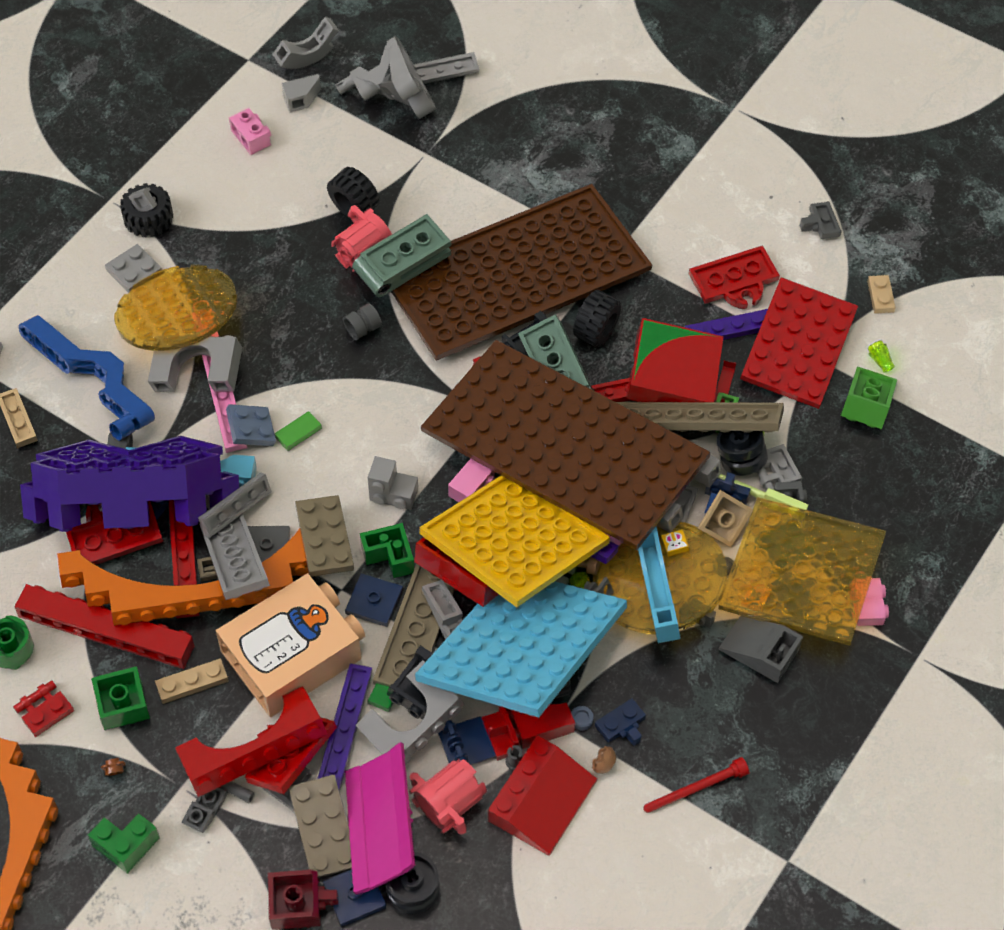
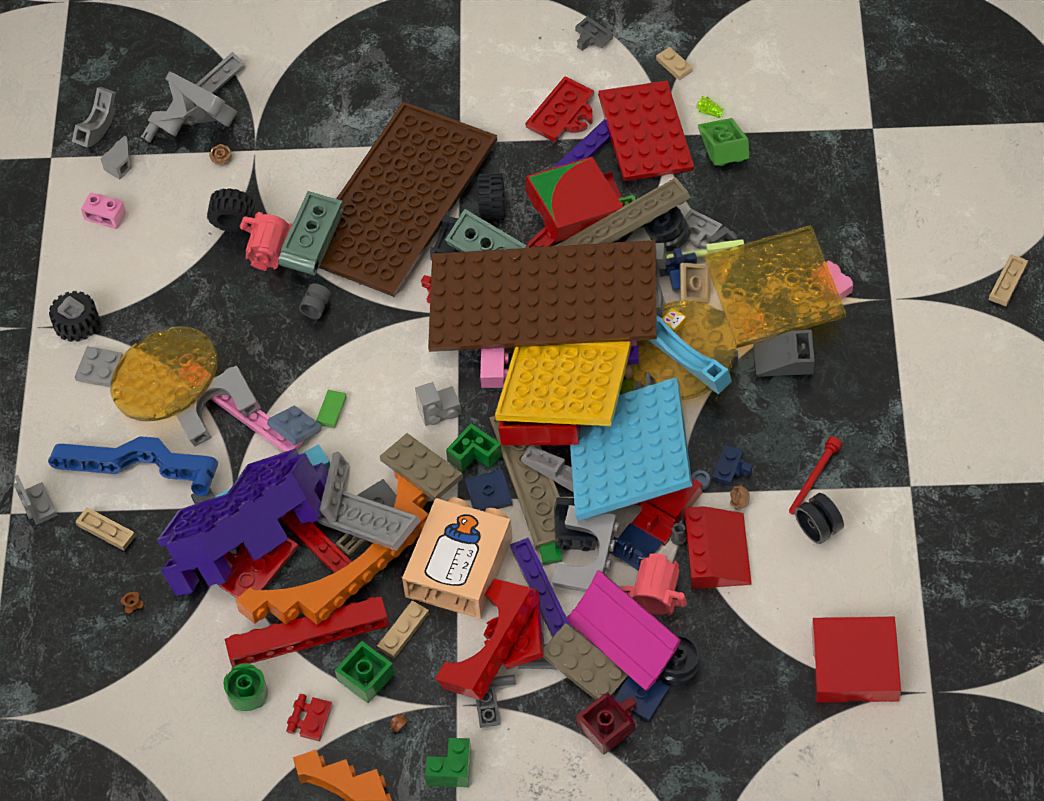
camera: 30 degrees left, 0 degrees up
(391, 139) = (220, 154): none -> medium nougat plate
(662, 833) = (819, 518): none -> black wheel

